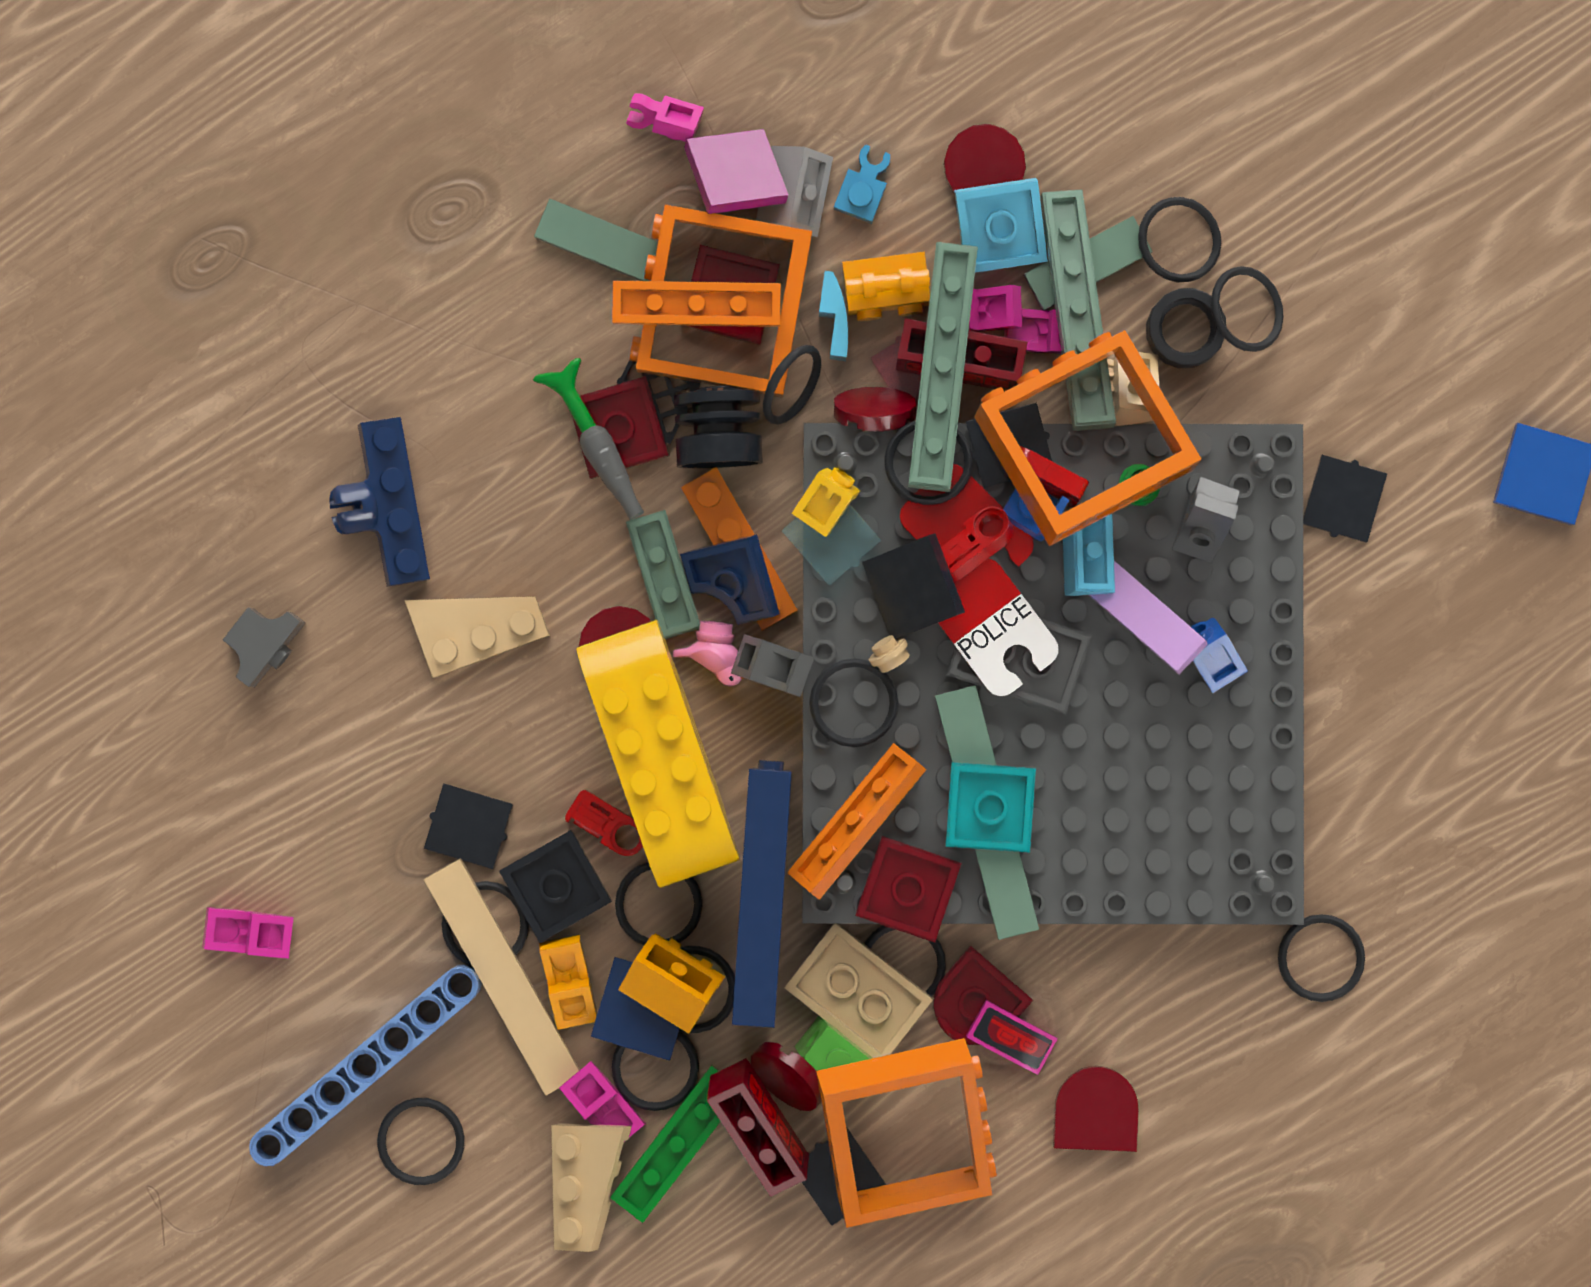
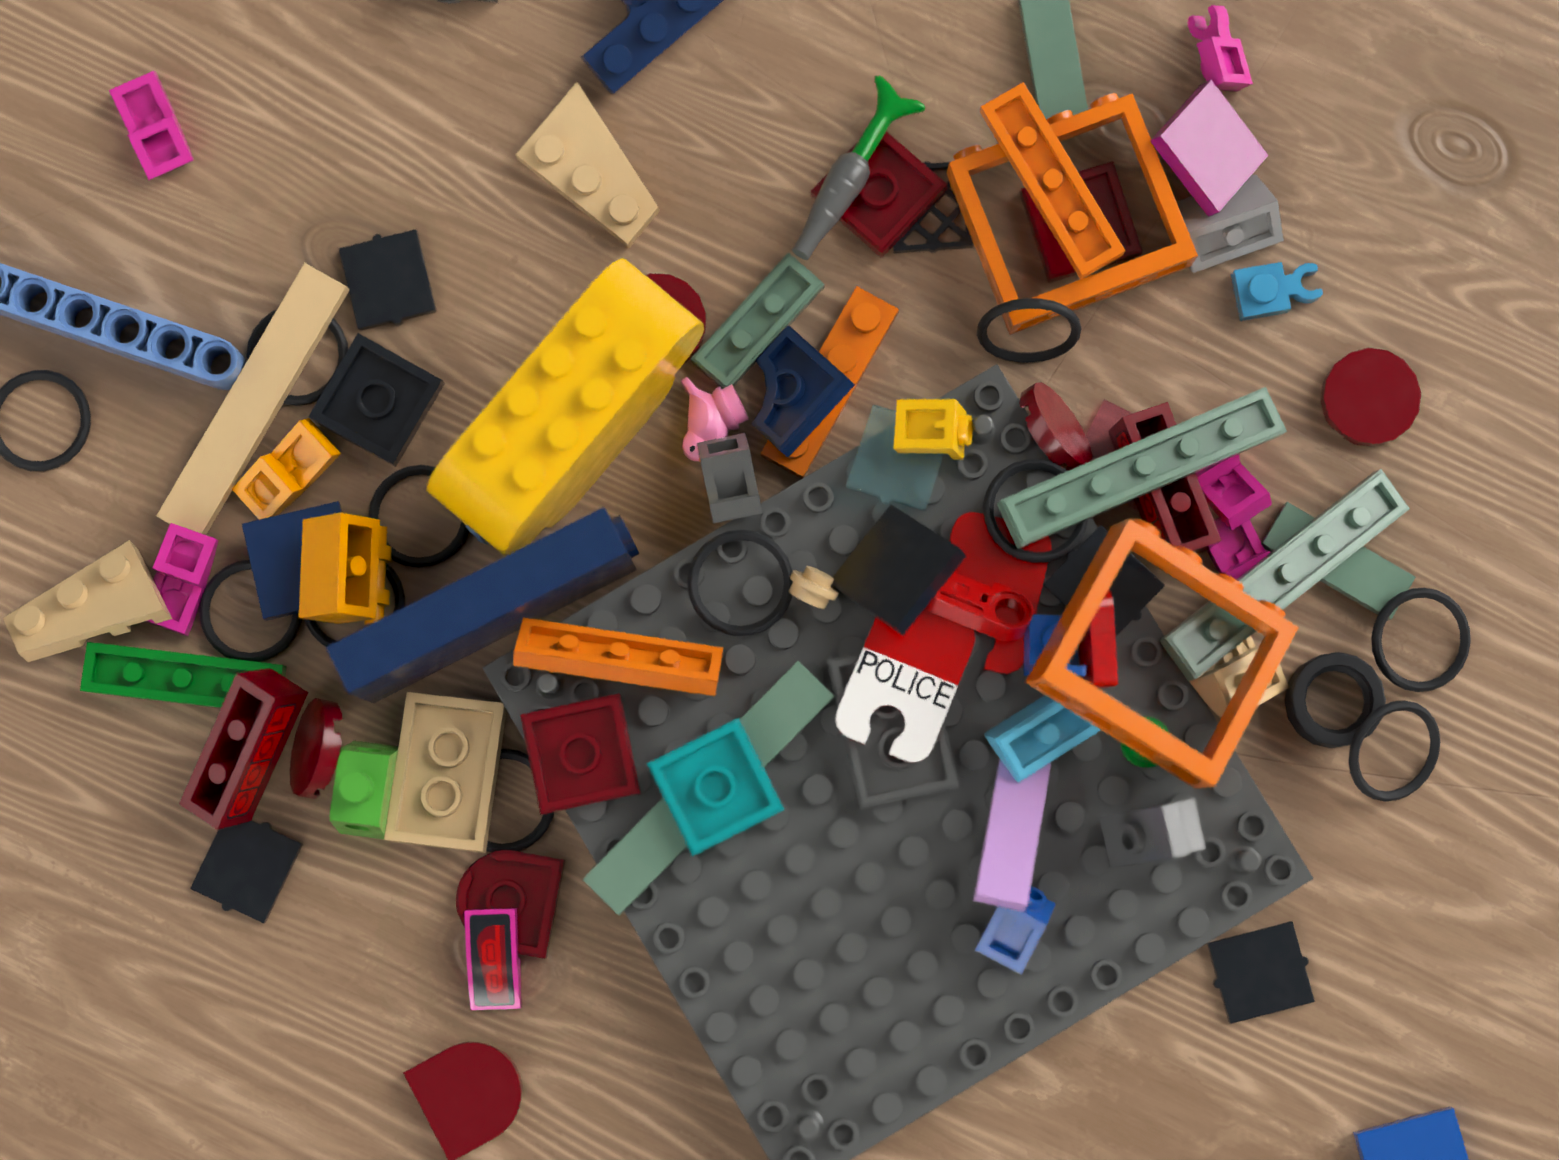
camera: 60 degrees right, 5 degrees down
(601, 819) = (470, 394): red piece -> none
(718, 428) = (945, 278): black wheel -> none
(833, 306) = (1132, 329): medium azure slope -> none
(886, 285) = (1187, 366): light orange brick -> none
(892, 1074) = (376, 853): orange window -> none
(1002, 223) = (1324, 448): medium azure plate -> none

